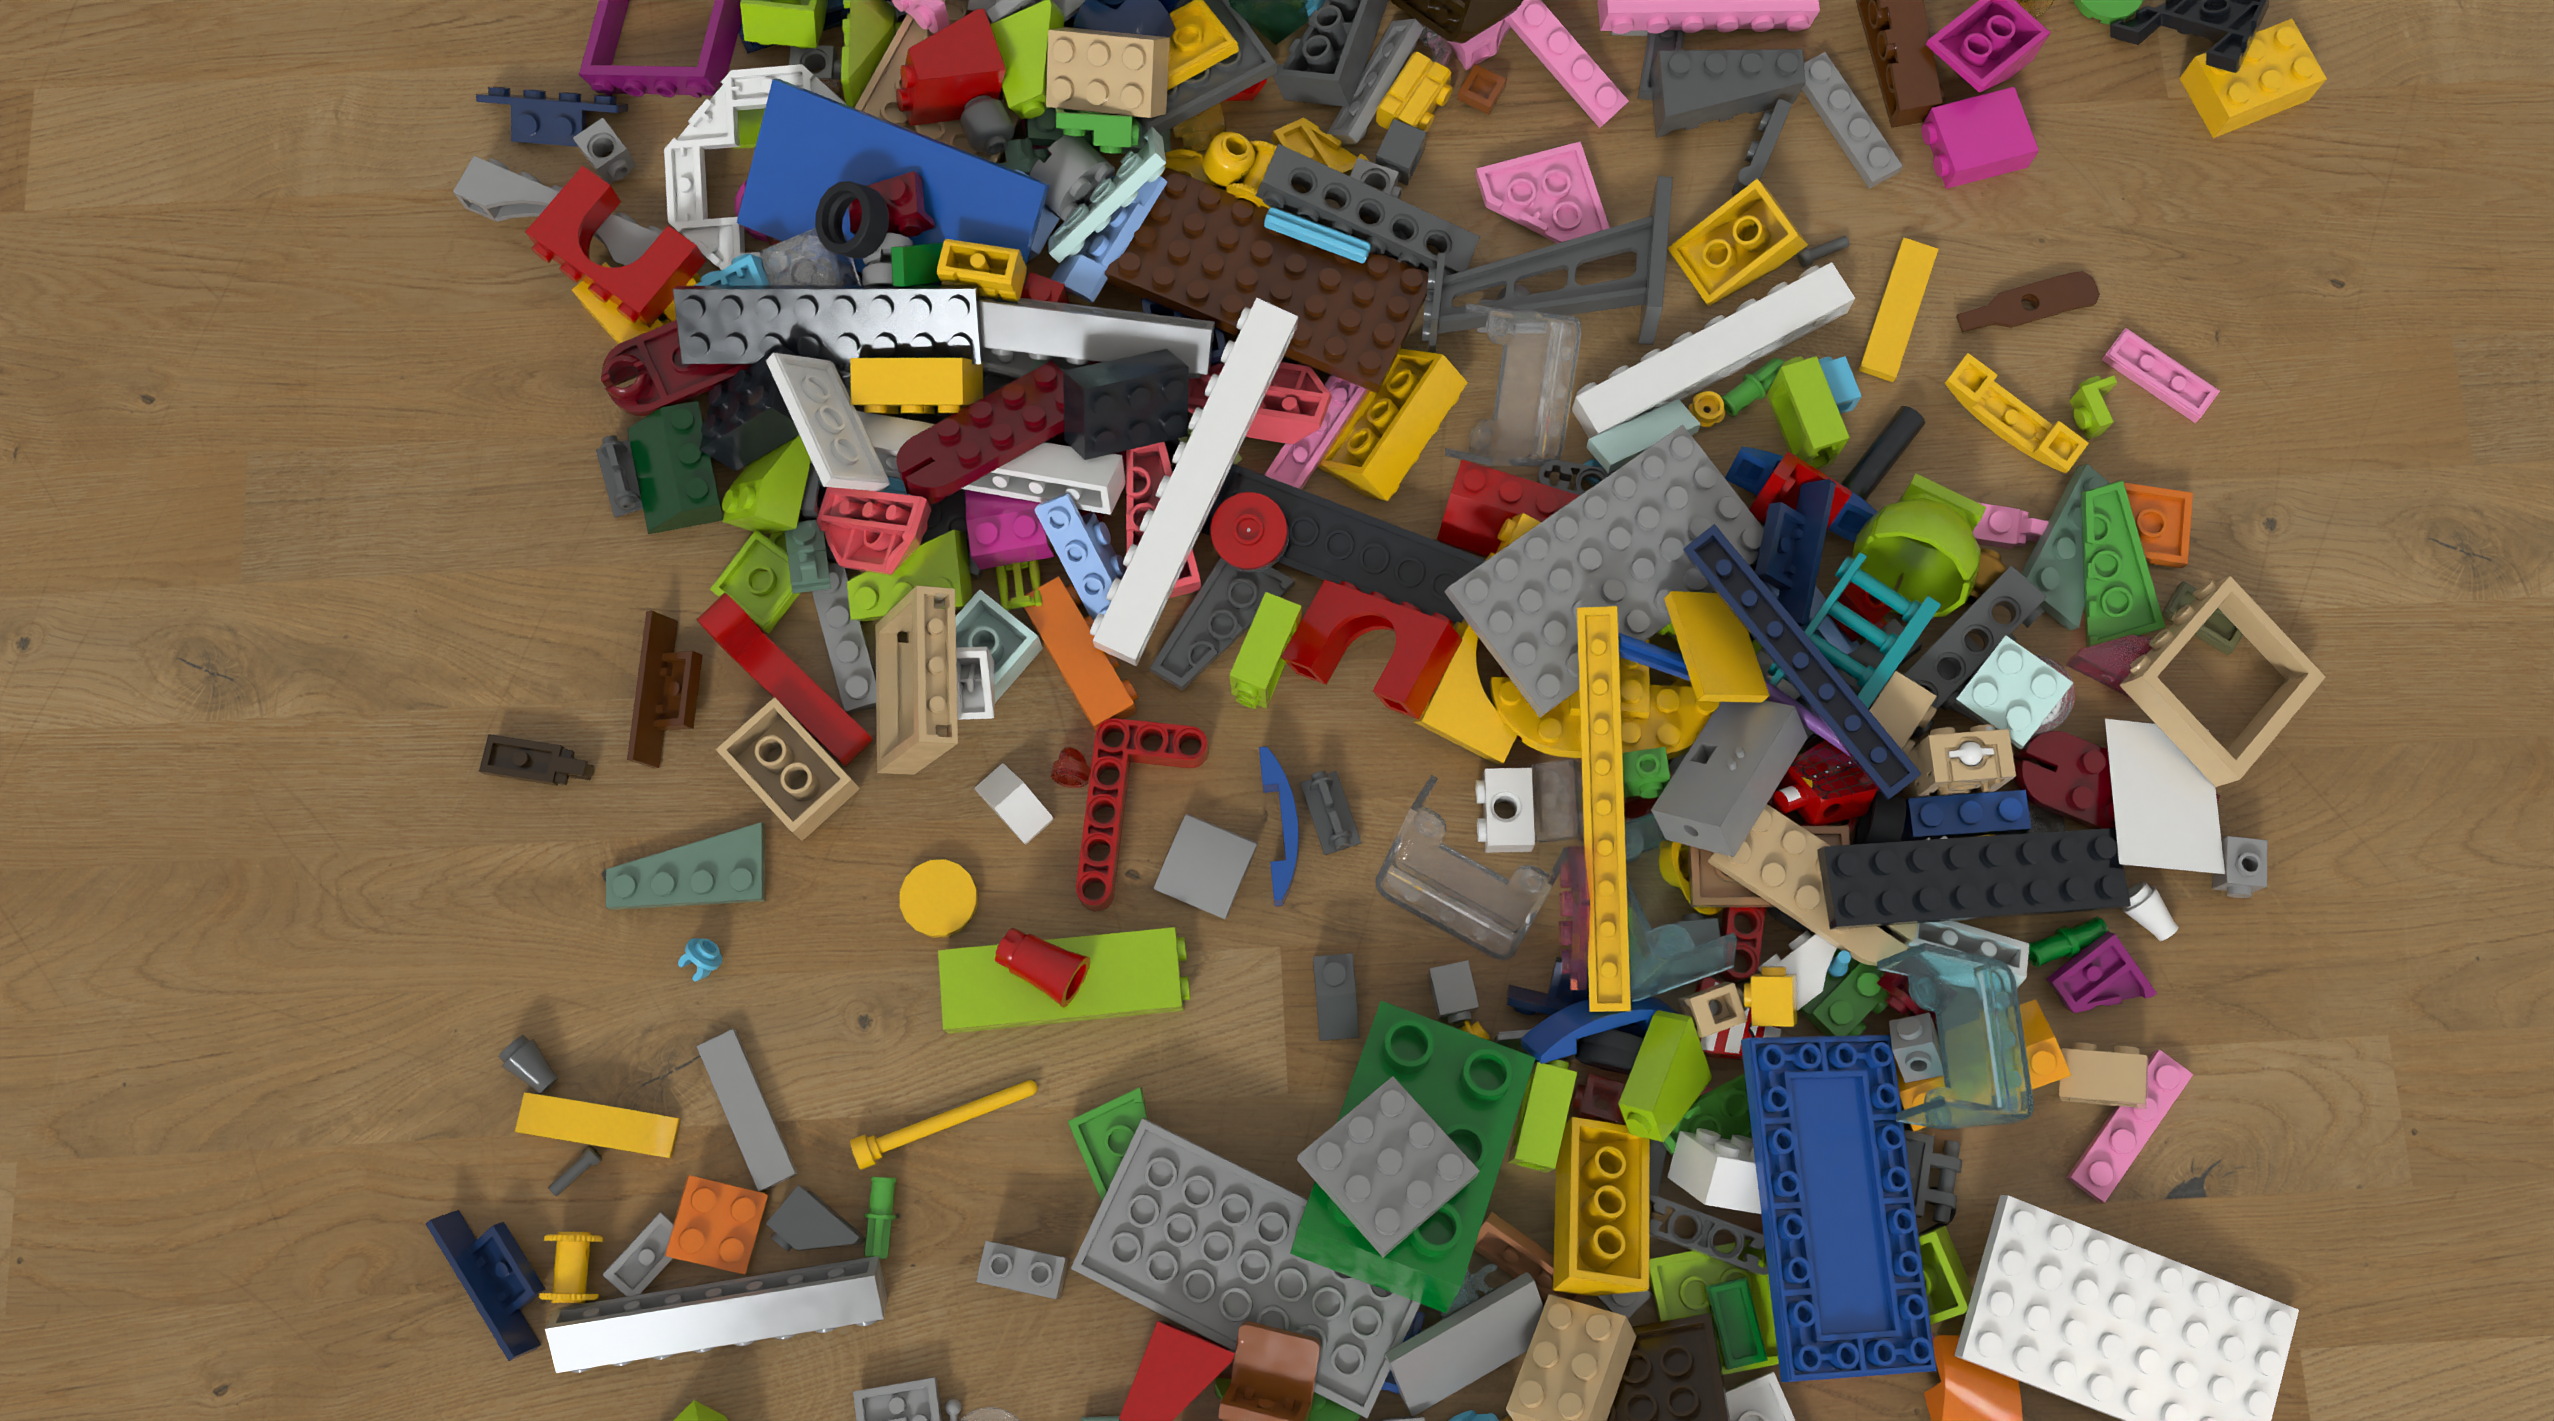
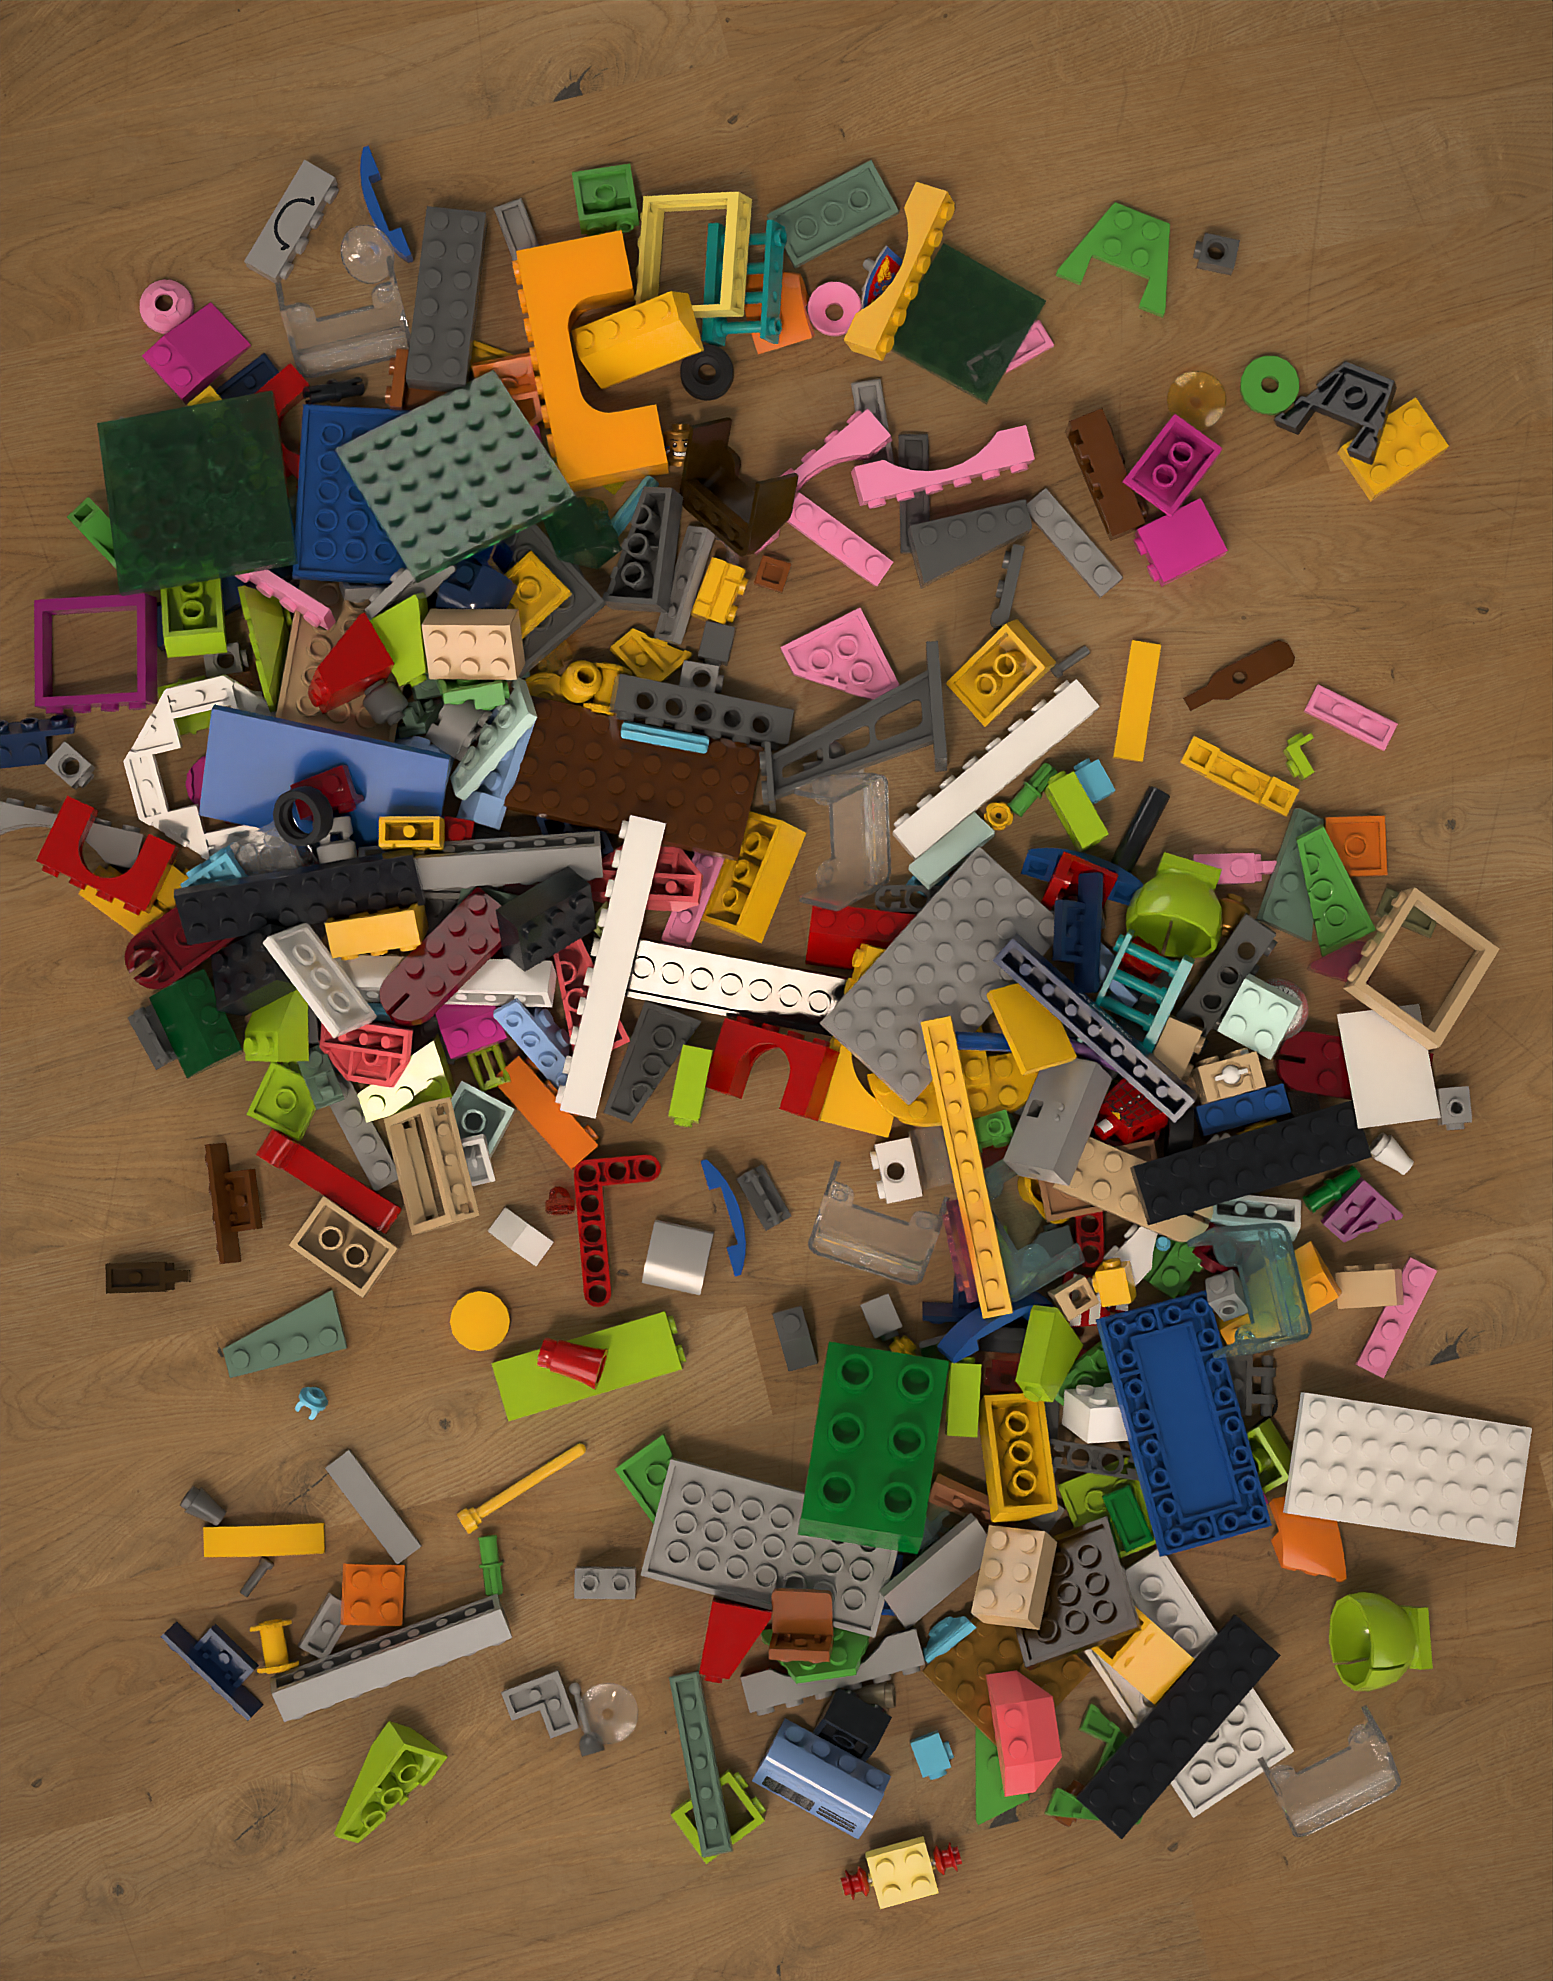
camera: 15 degrees left, 10 degrees up
(810, 1224) = (441, 1581): dark grey slope -> none
(915, 263) = (360, 837): green tile -> none
(1249, 532) = (659, 993): red piece -> none
(1388, 1166) = (856, 1465): light grey plate -> none

